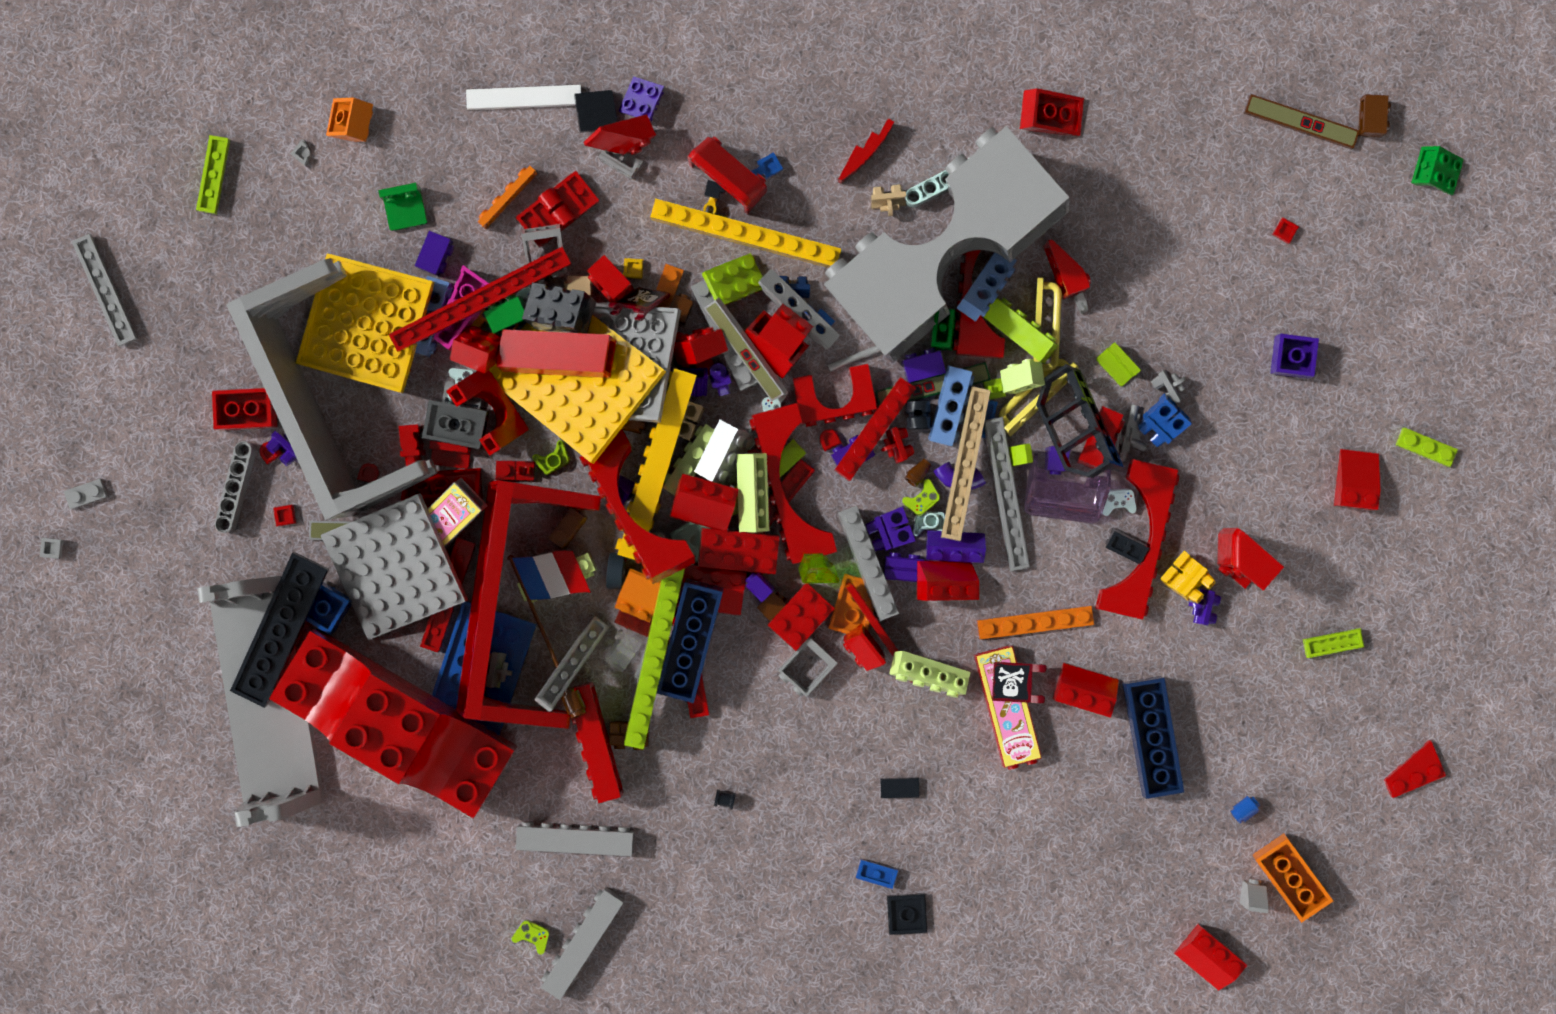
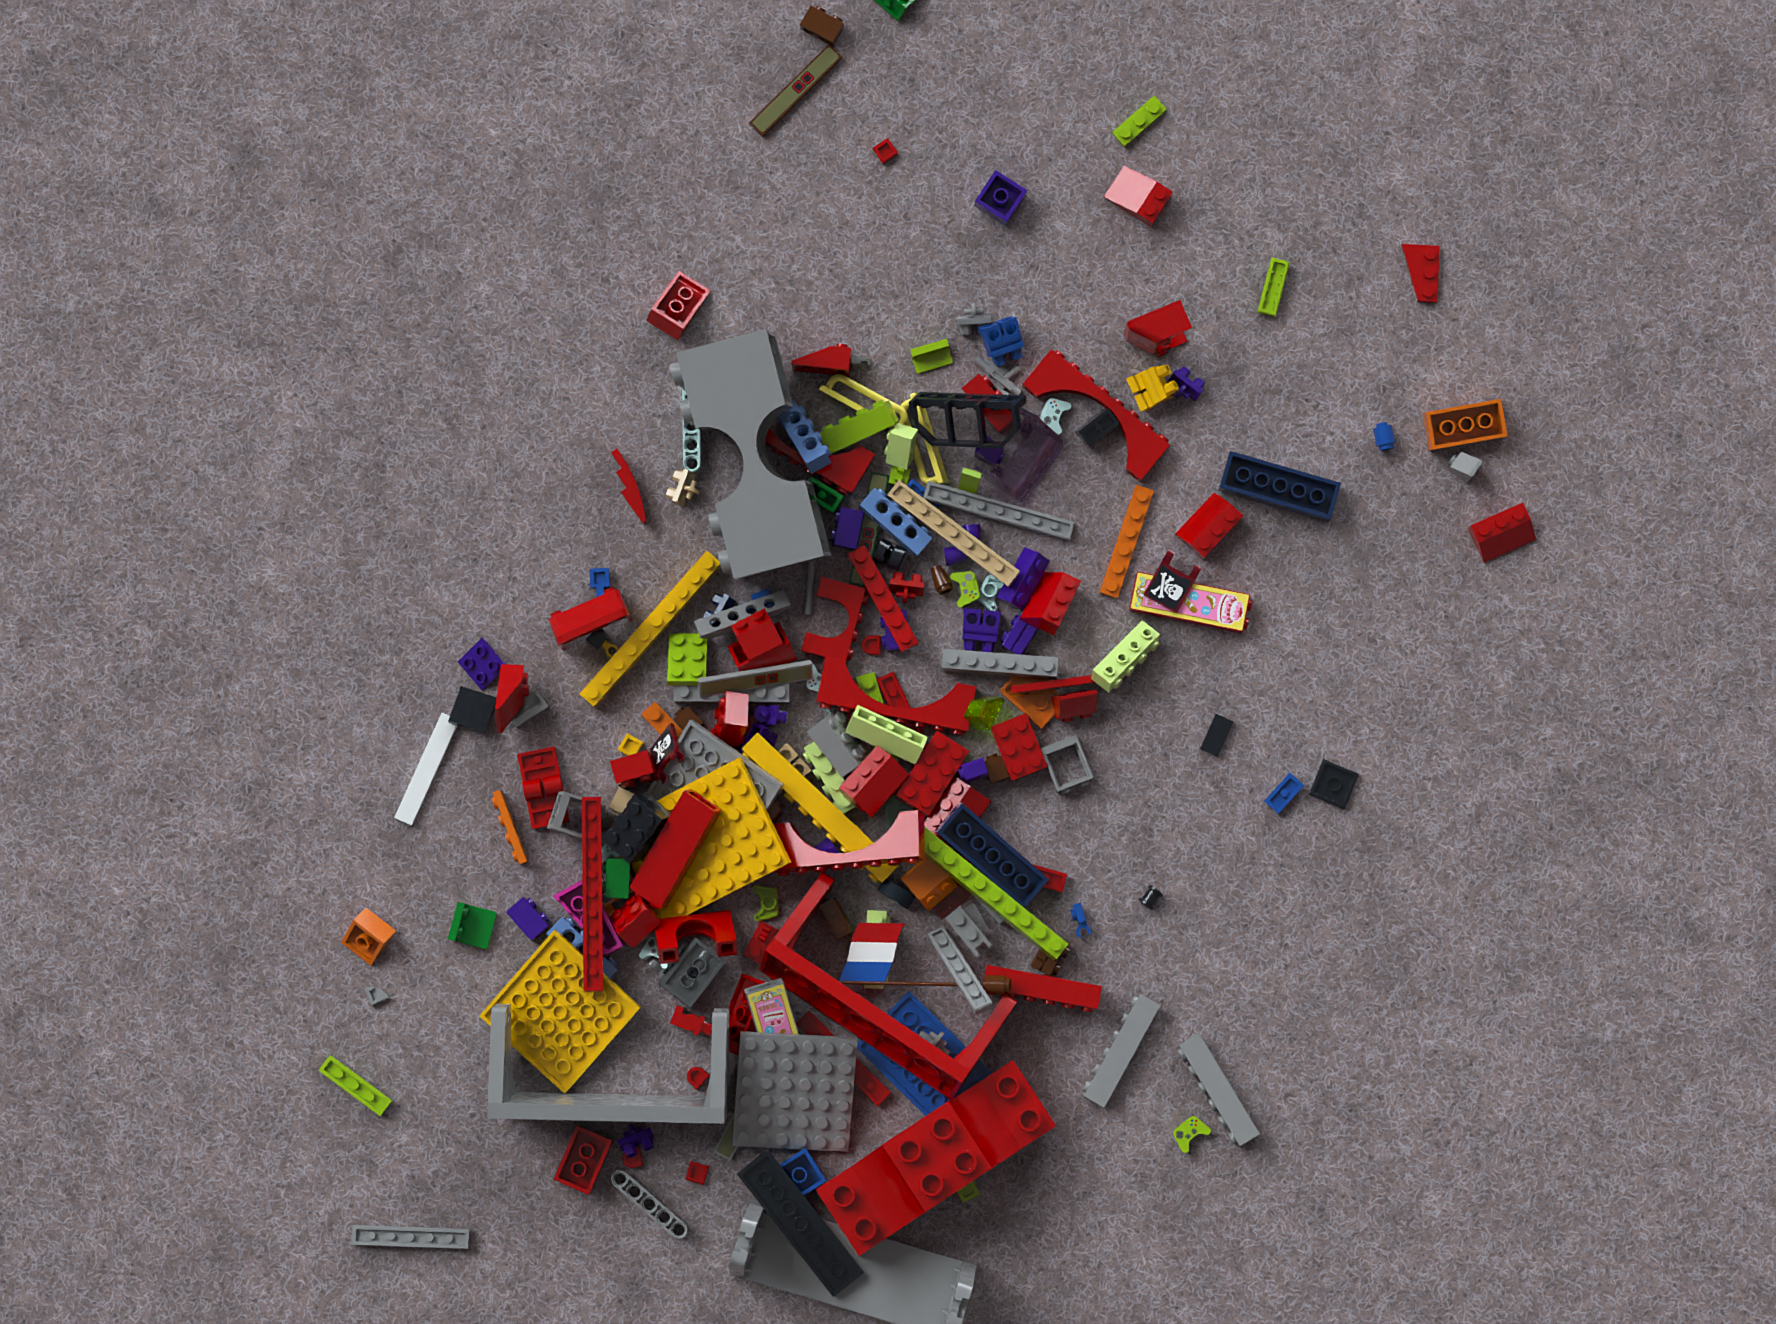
camera: 60 degrees left, 5 degrees down
(450, 454) = (716, 993): red panel -> none
(613, 651) = (967, 930): none -> light grey hinge
(677, 741) = (1077, 914): none -> blue plate

